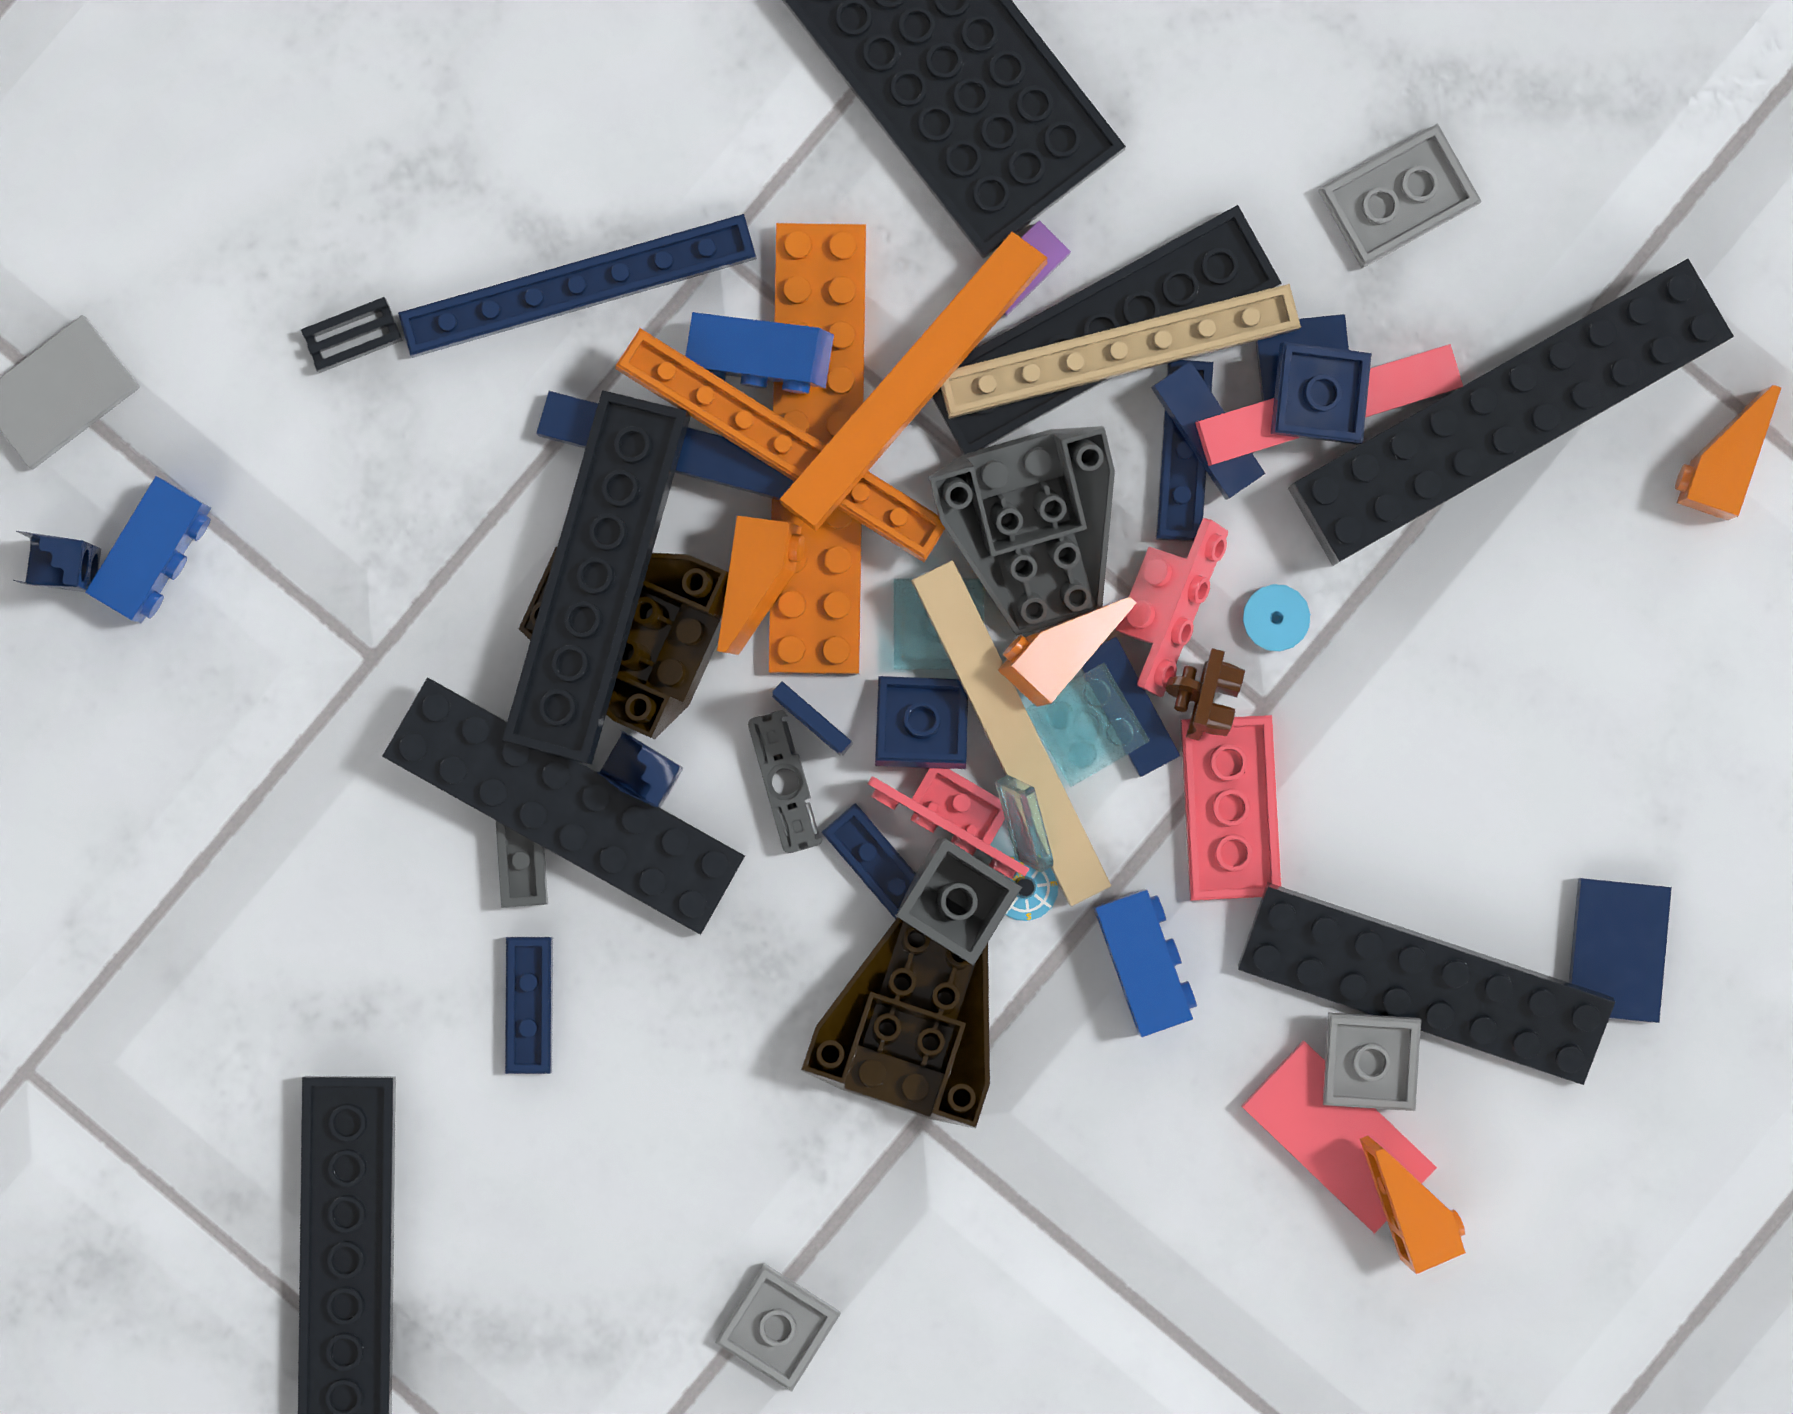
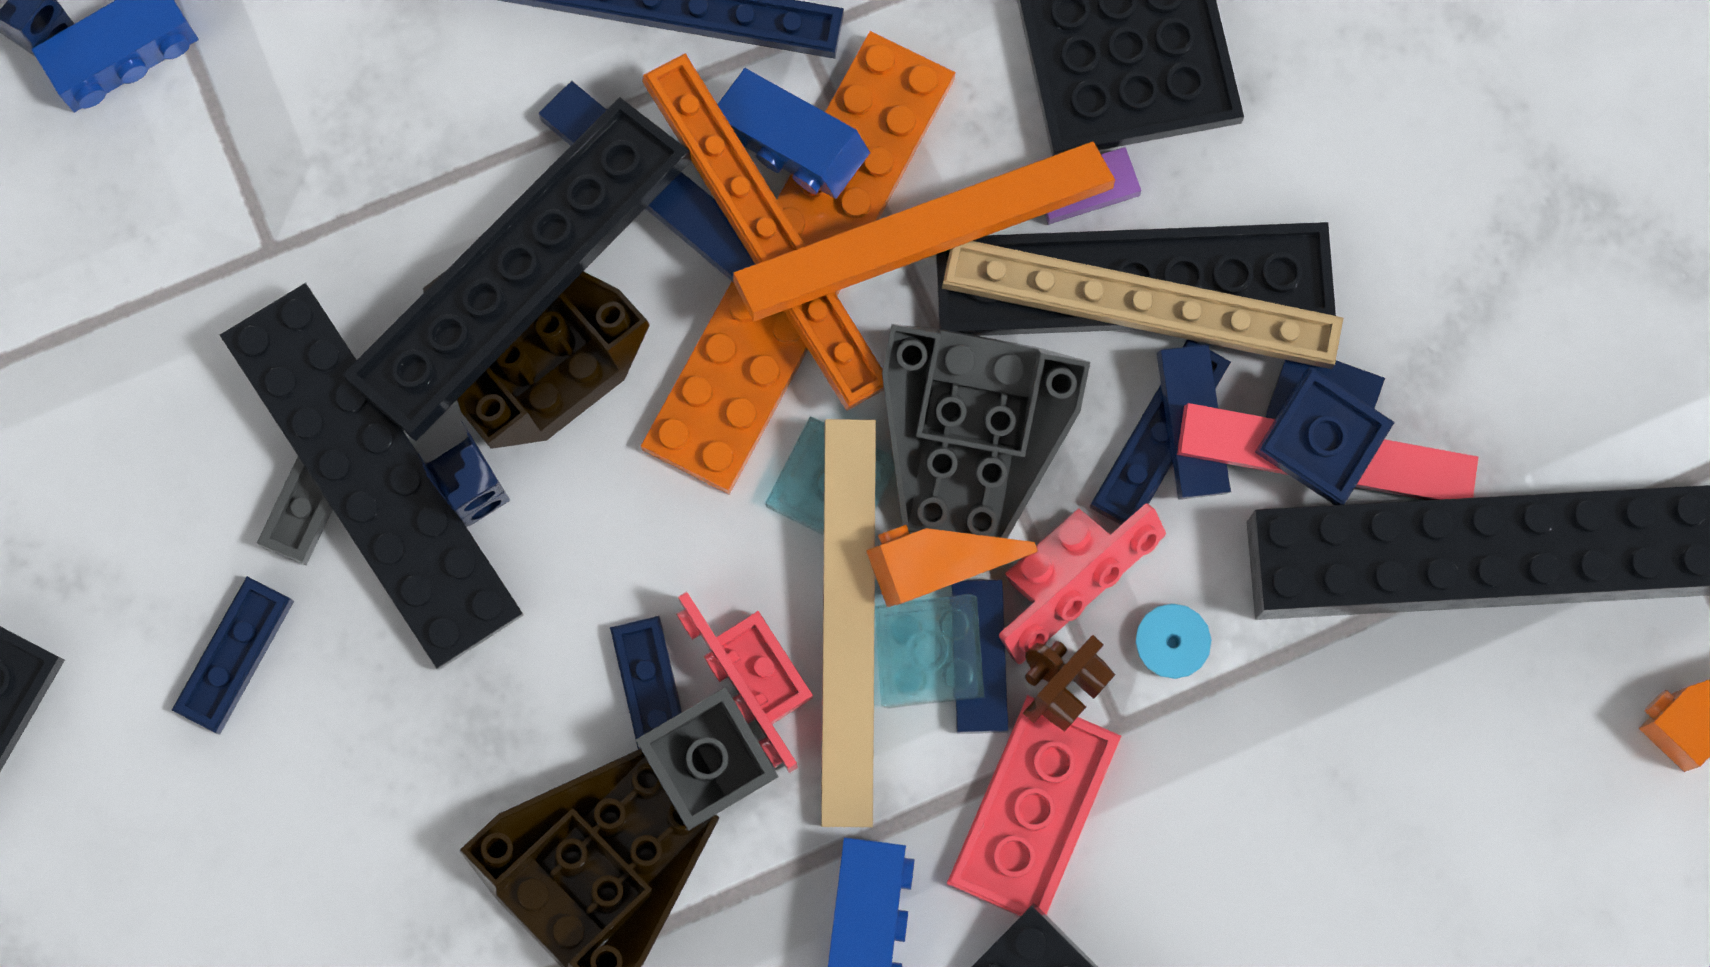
camera: 25 degrees right, 10 degrees down
(759, 569) = (678, 341): orange slope -> none
(791, 812) = (591, 594): dark grey piece -> none
(811, 719) = (656, 506): dark blue tile -> none
(921, 723) = (764, 568): dark blue tile -> none
(1024, 823) = (815, 716): clear light blue tile -> none
(1036, 895) = (791, 795): piece -> none
(1399, 195) = (1493, 293): light grey tile -> none

